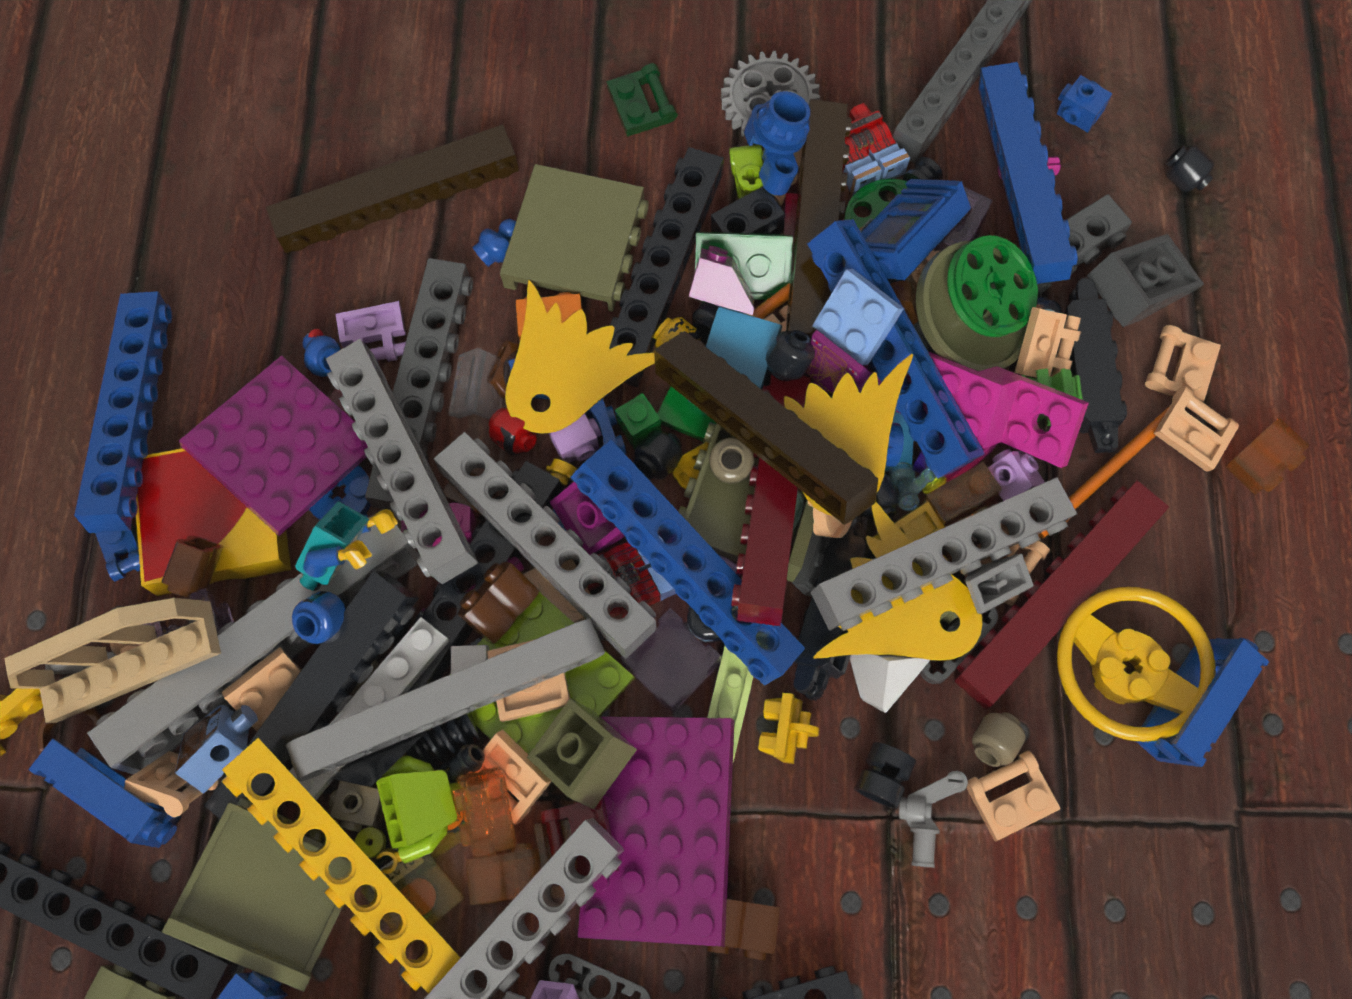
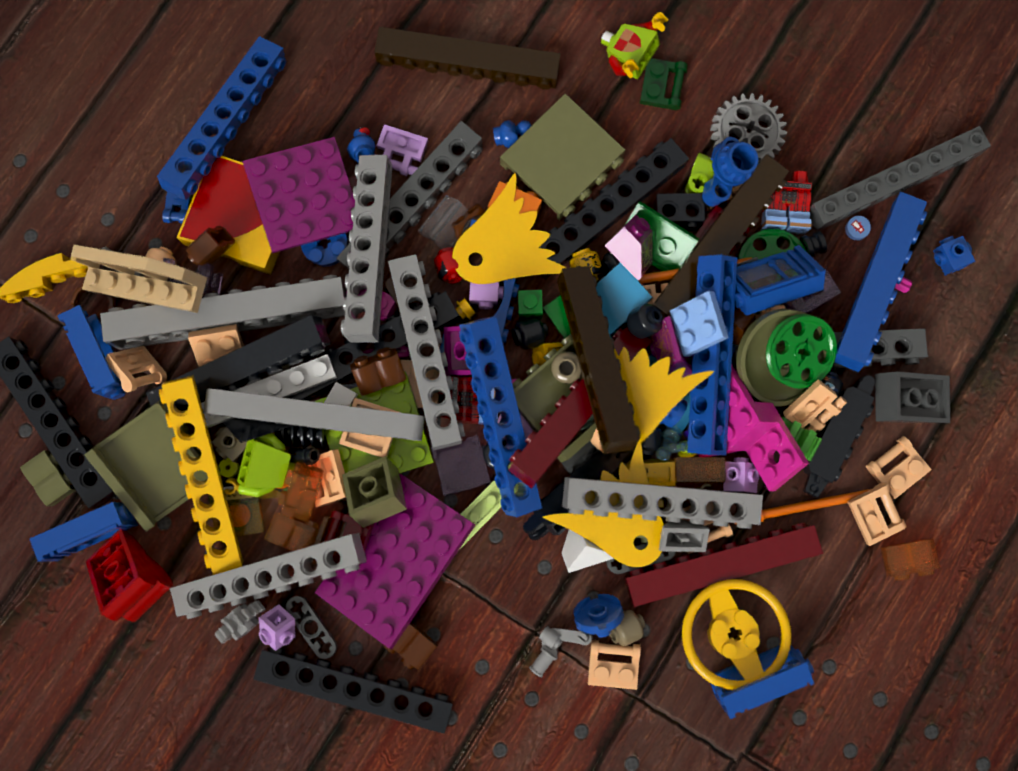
camera: 30 degrees right, 10 degrees up
(213, 745) = (168, 361): medium blue torso -> none
(318, 617) = (265, 323): blue head -> none
(336, 541) = (298, 281): torso -> none
(583, 74) = (633, 46): none -> torso
(792, 728) = (507, 549): yellow hips -> none
(882, 787) = (537, 613): black wheel -> none
(956, 741) = (598, 615): none -> blue plate
(959, 134) = (857, 228): none -> medium blue tile
(1189, 168) = (994, 340): black head -> none

